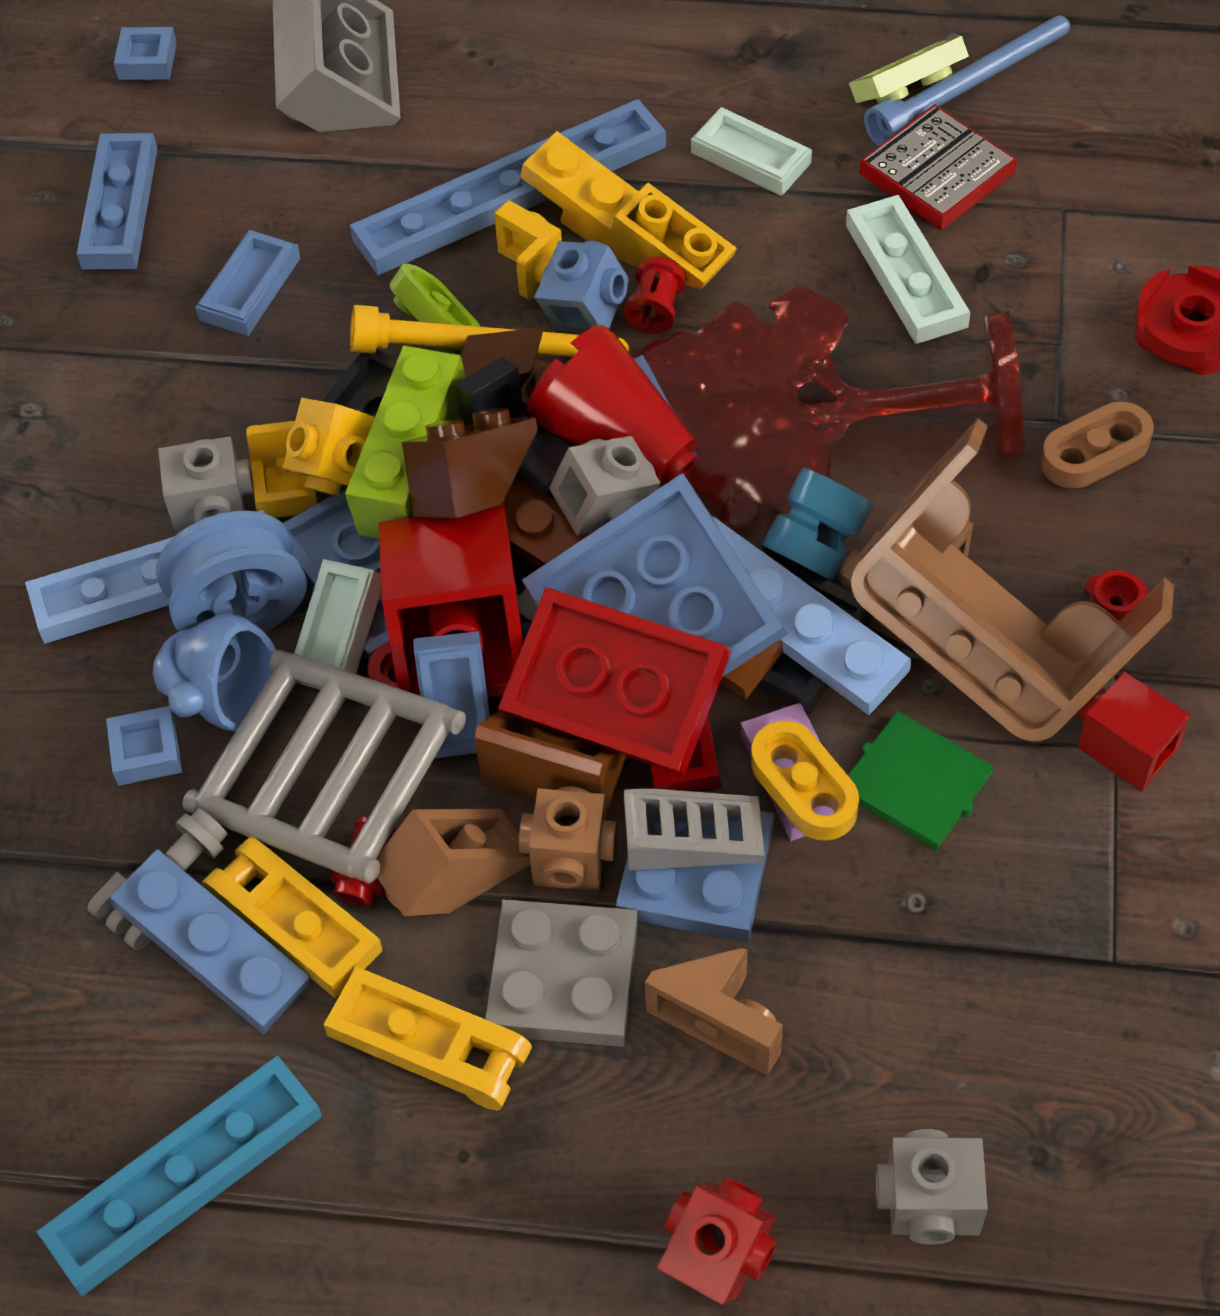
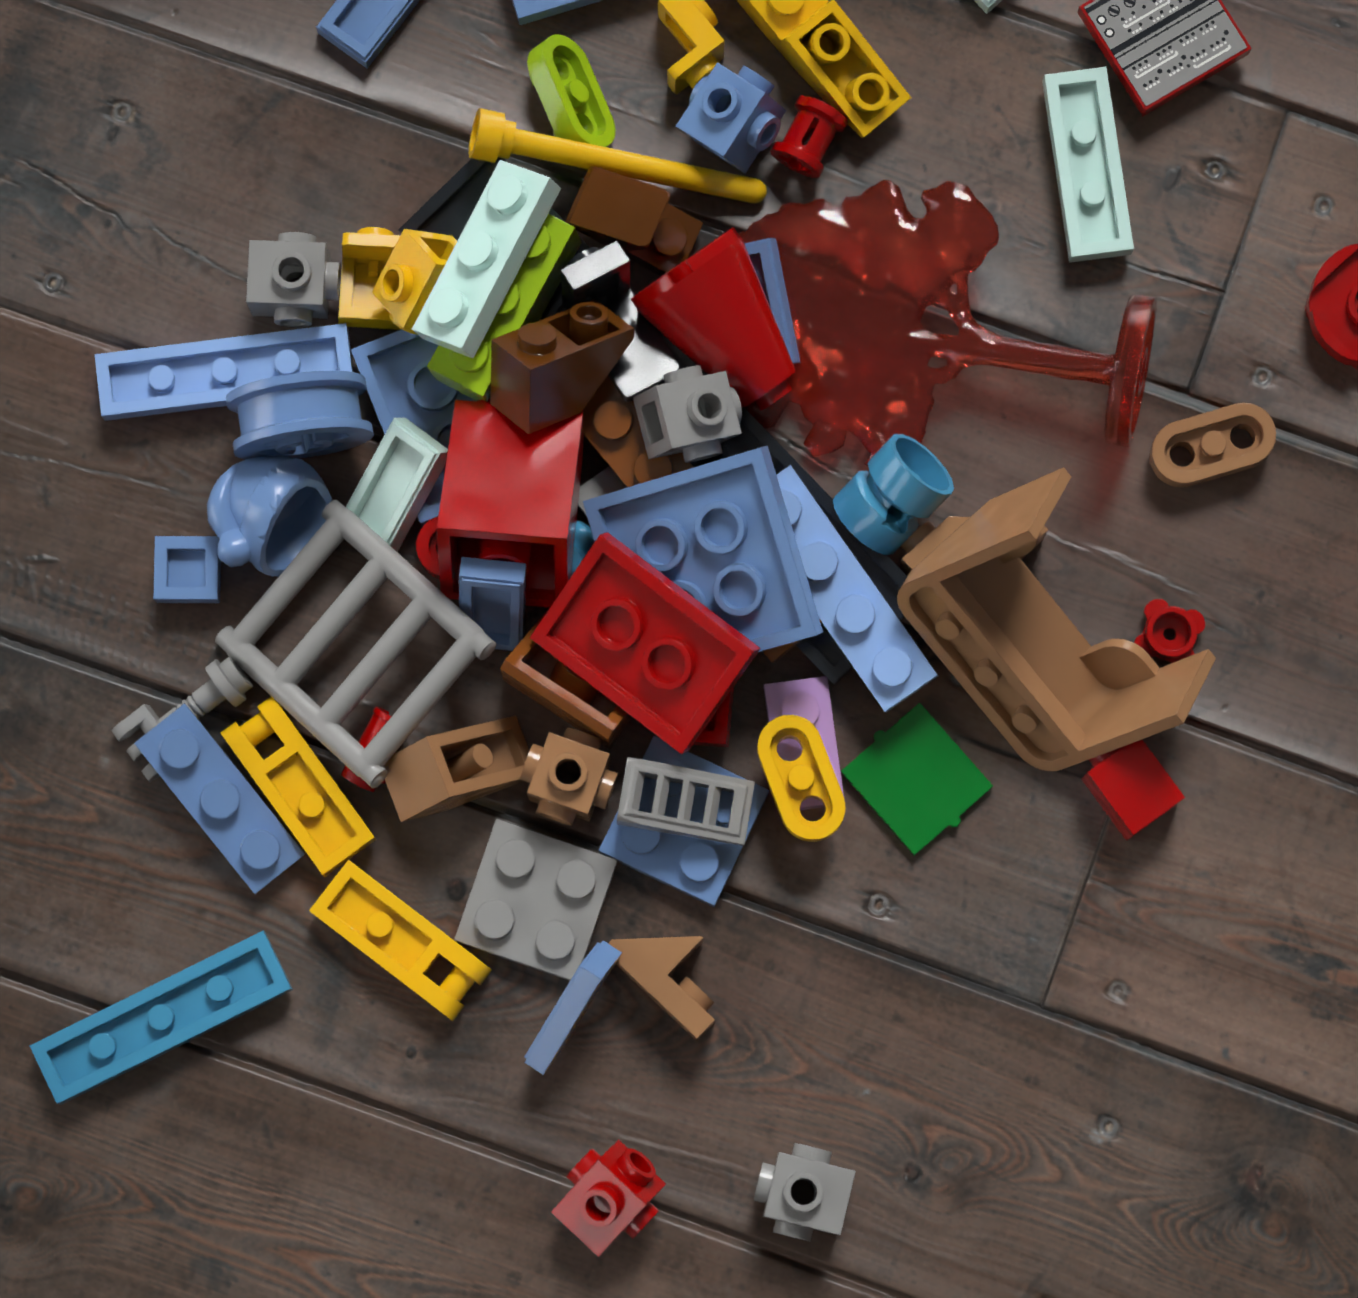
camera: 10 degrees right, 25 degrees up
(382, 390) = (486, 258): none -> light aqua plate
(626, 1048) = (571, 1006): none -> medium blue tile

